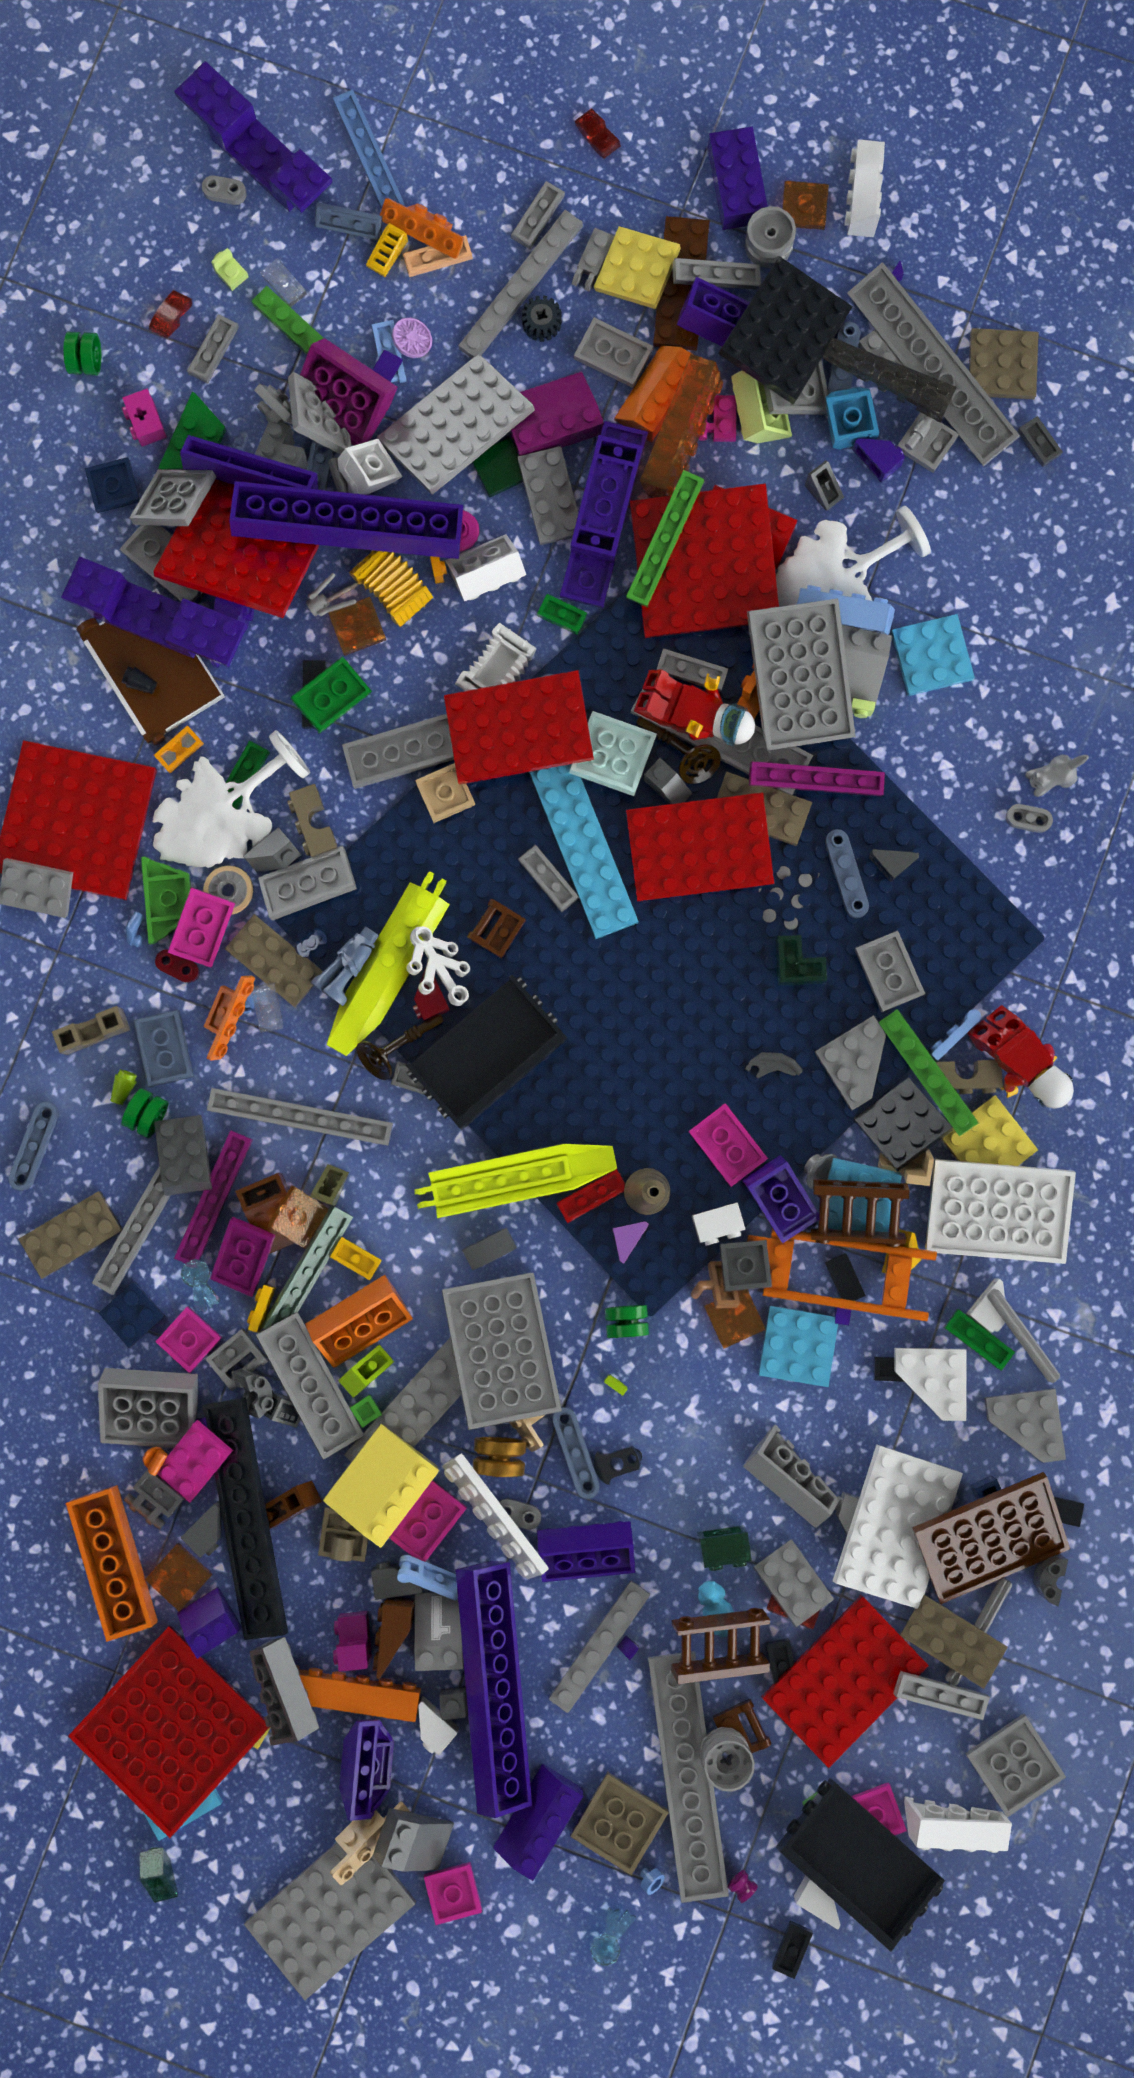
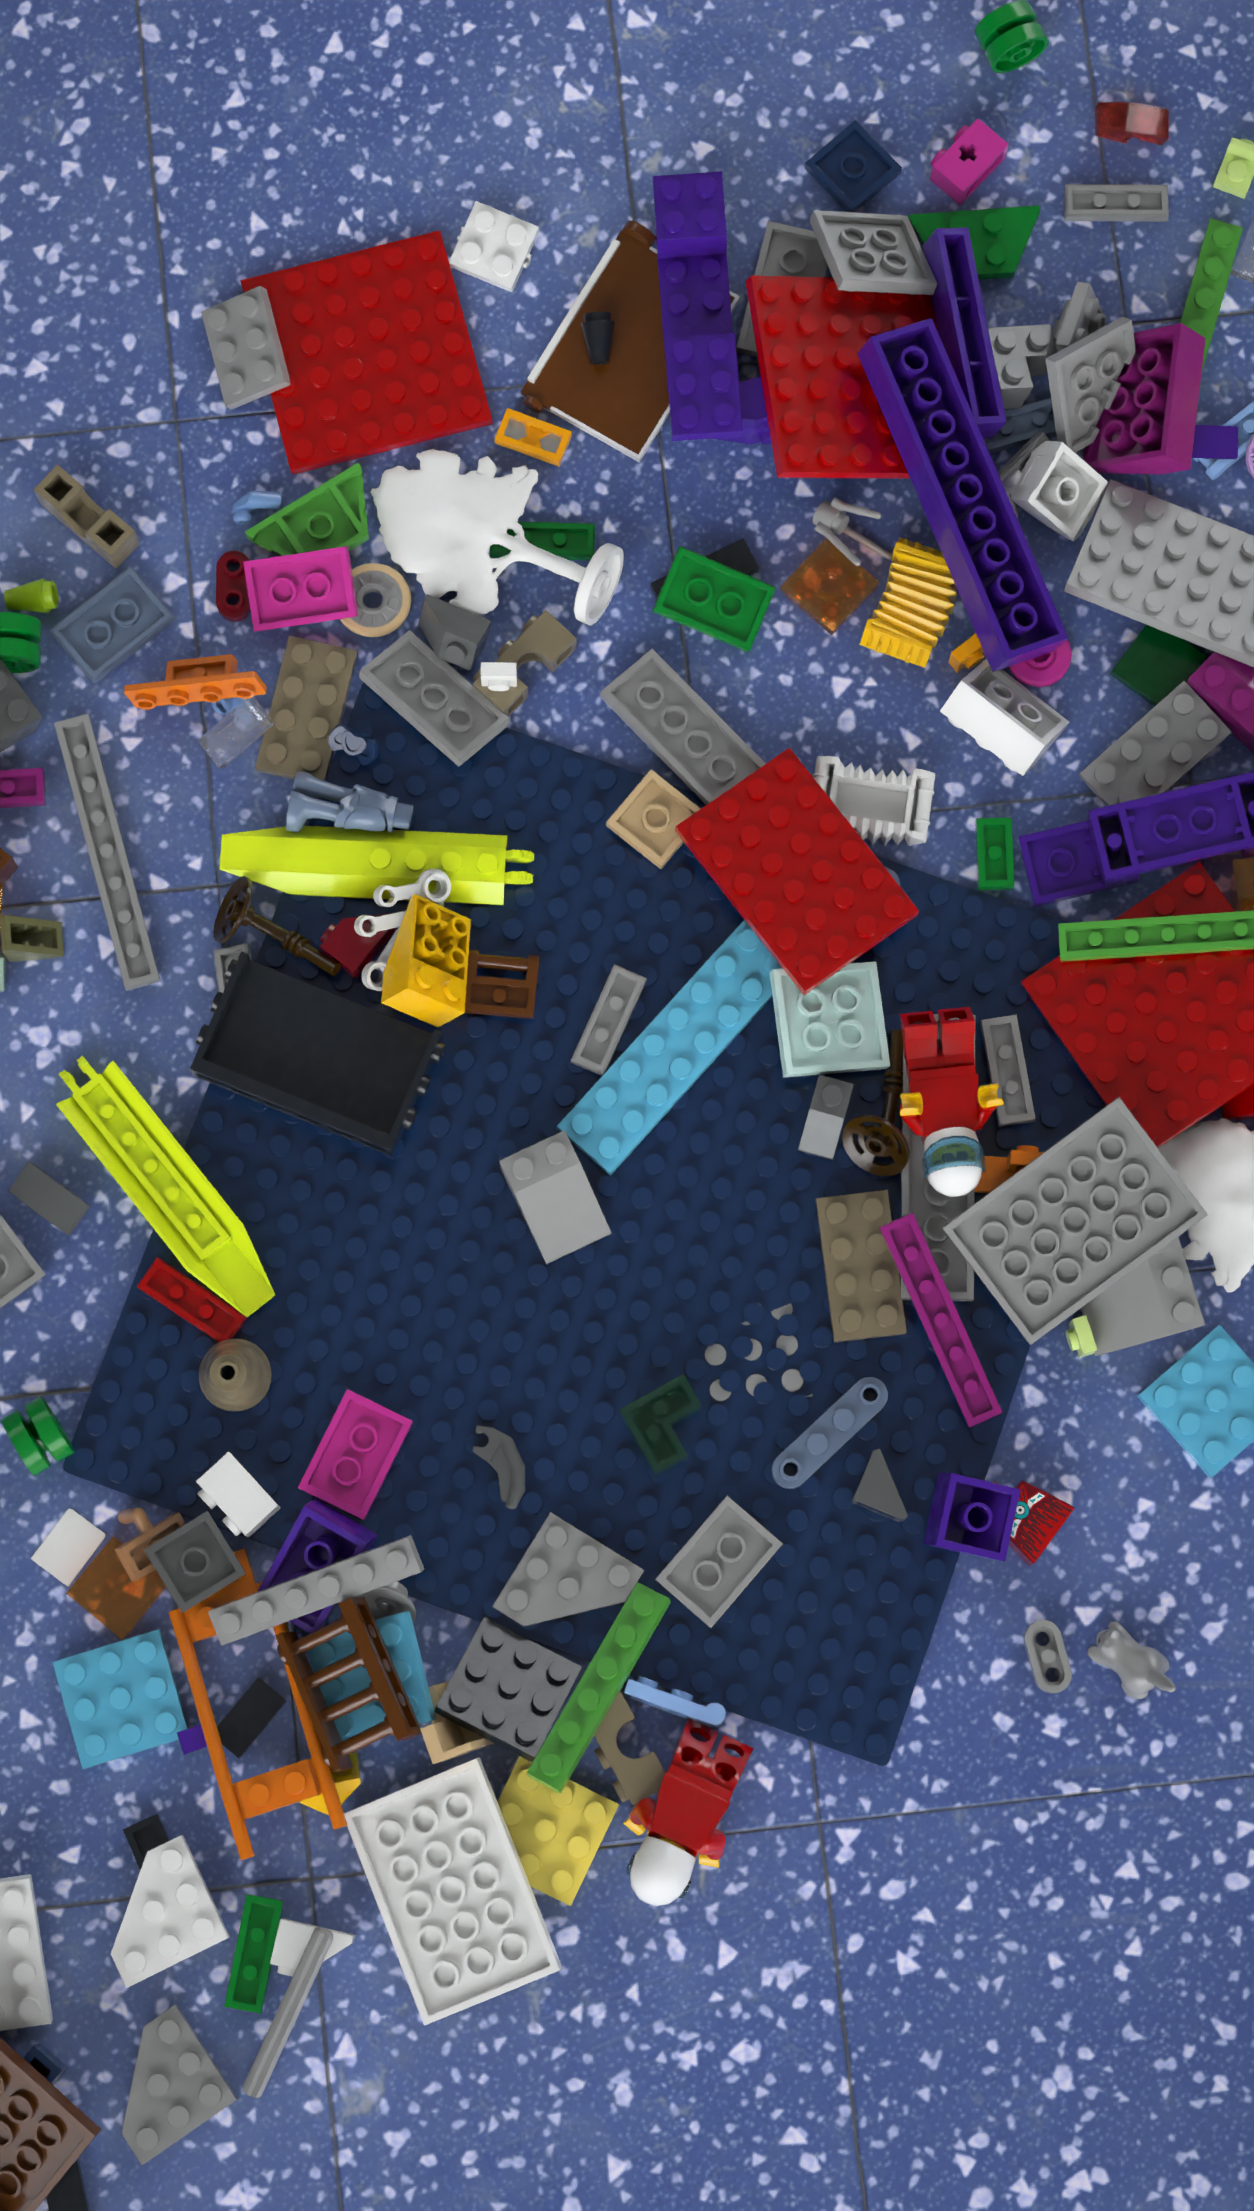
camera: 60 degrees right, 5 degrees down
(49, 714) = (494, 246): none -> white plate
(316, 837) = (498, 675): none -> white plate
(466, 962) = (428, 963): none -> yellow slope
(627, 1237) = (153, 1378): medium lavender slope -> none
(636, 959) = (555, 1197): none -> light grey slope
(696, 1334) = (68, 1547): none -> white sticker
(700, 847) = (759, 1206): red plate -> none
(797, 1203) = (316, 1590): none -> light grey plate
(854, 610) = (1210, 1252): light blue wedge -> none
(935, 818) = (971, 1516): none -> dark purple slope
(948, 790) = (1036, 1521): none -> torso

